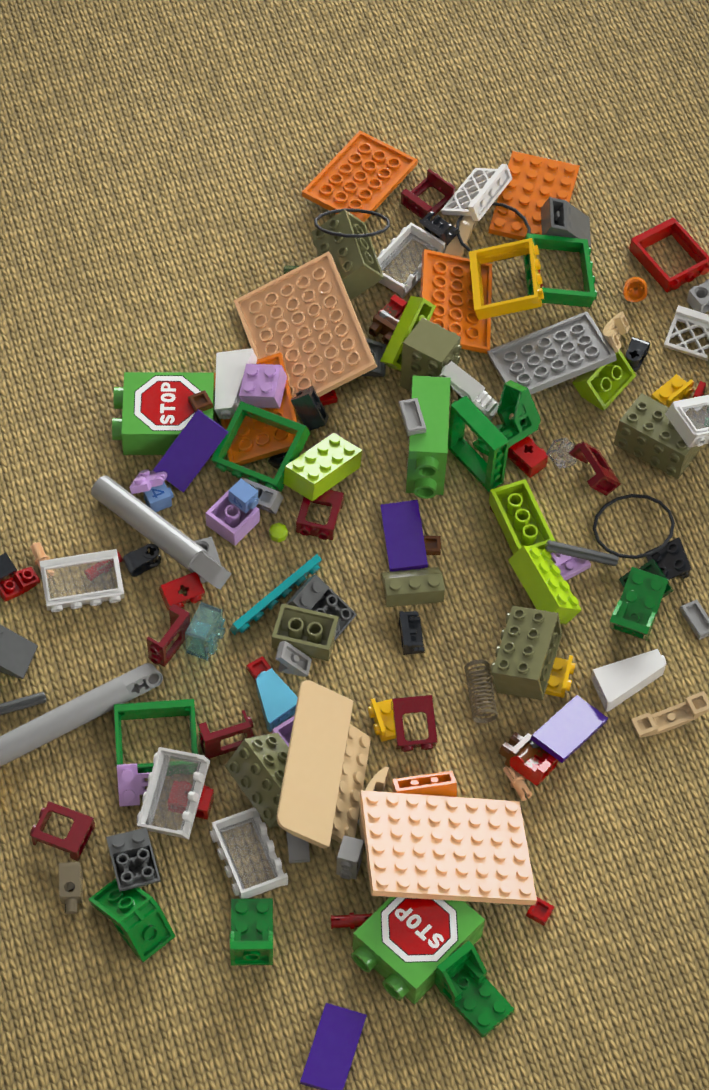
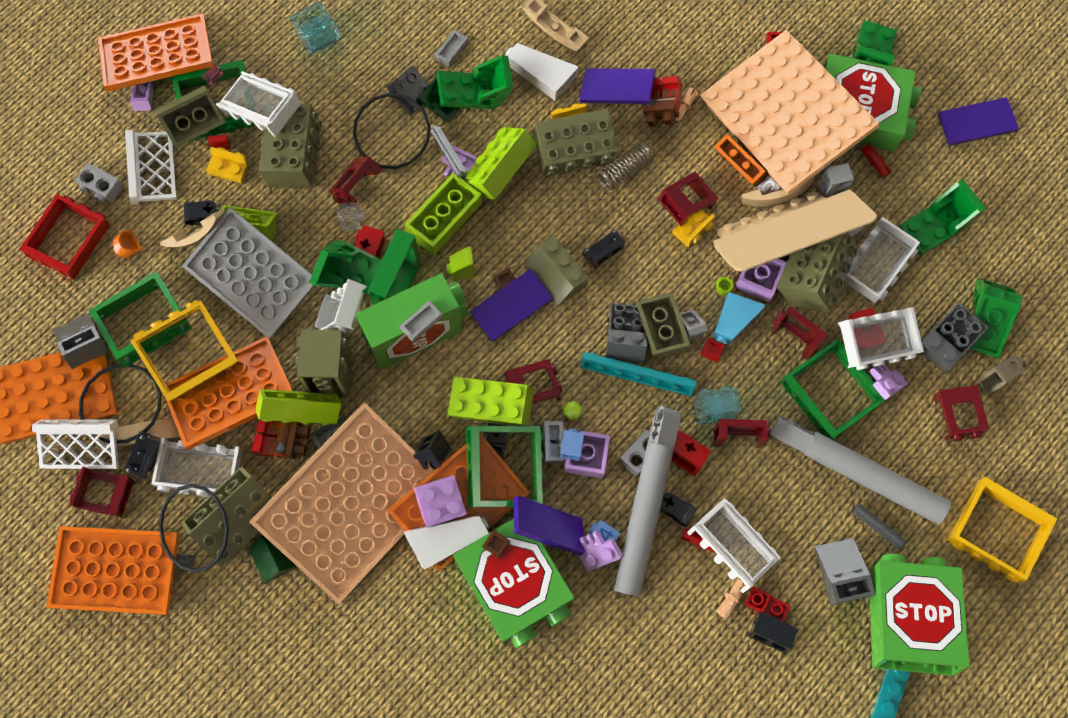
camera: 120 degrees left, 15 degrees up
(463, 514) = (461, 265): none -> lime slope

